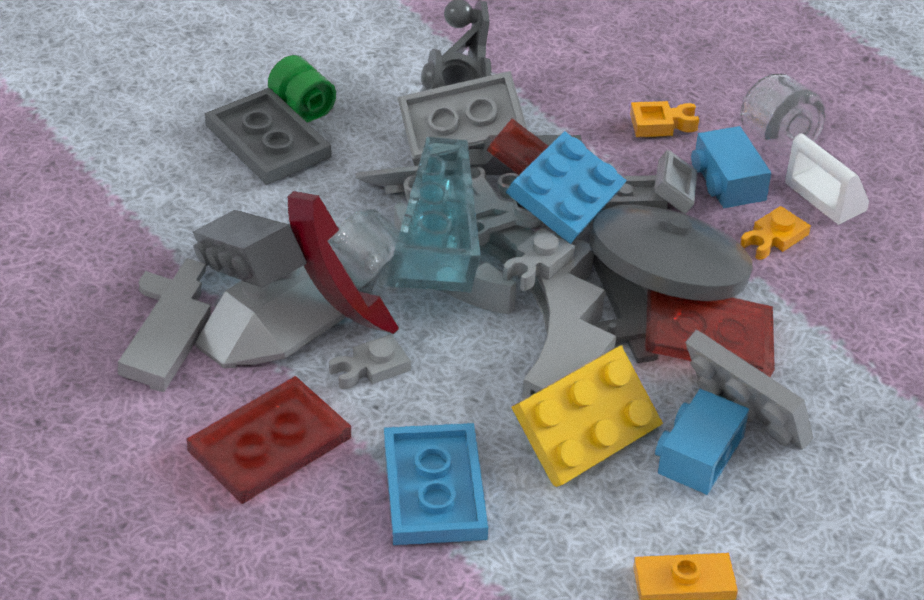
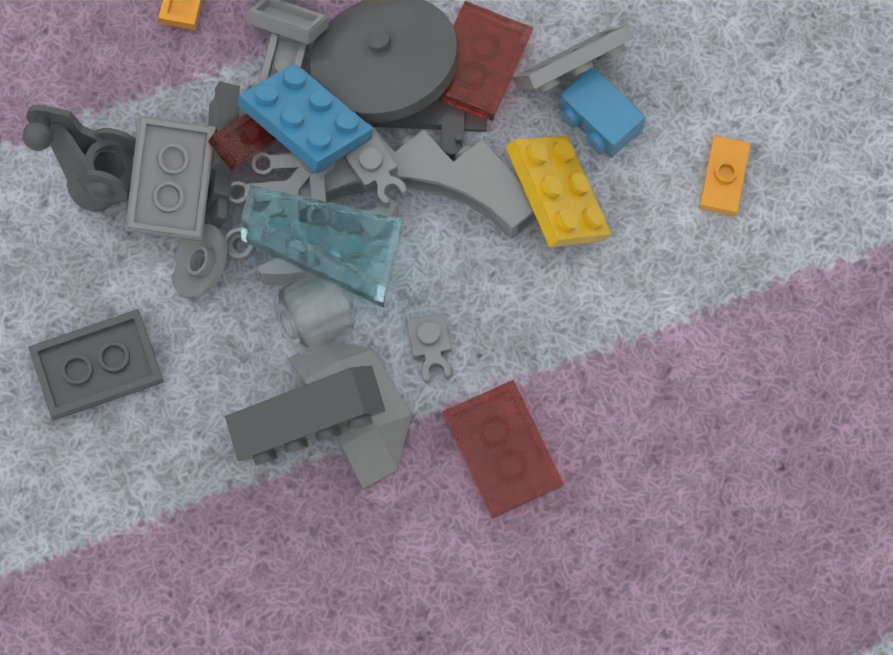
camera: 70 degrees left, 30 degrees up
(170, 327) = (343, 504): light grey piece -> none
(302, 87) = (41, 315): green wheel -> none
(312, 229) = (368, 345): dark red slope -> none
(434, 484) = (586, 330): dark azure plate -> none

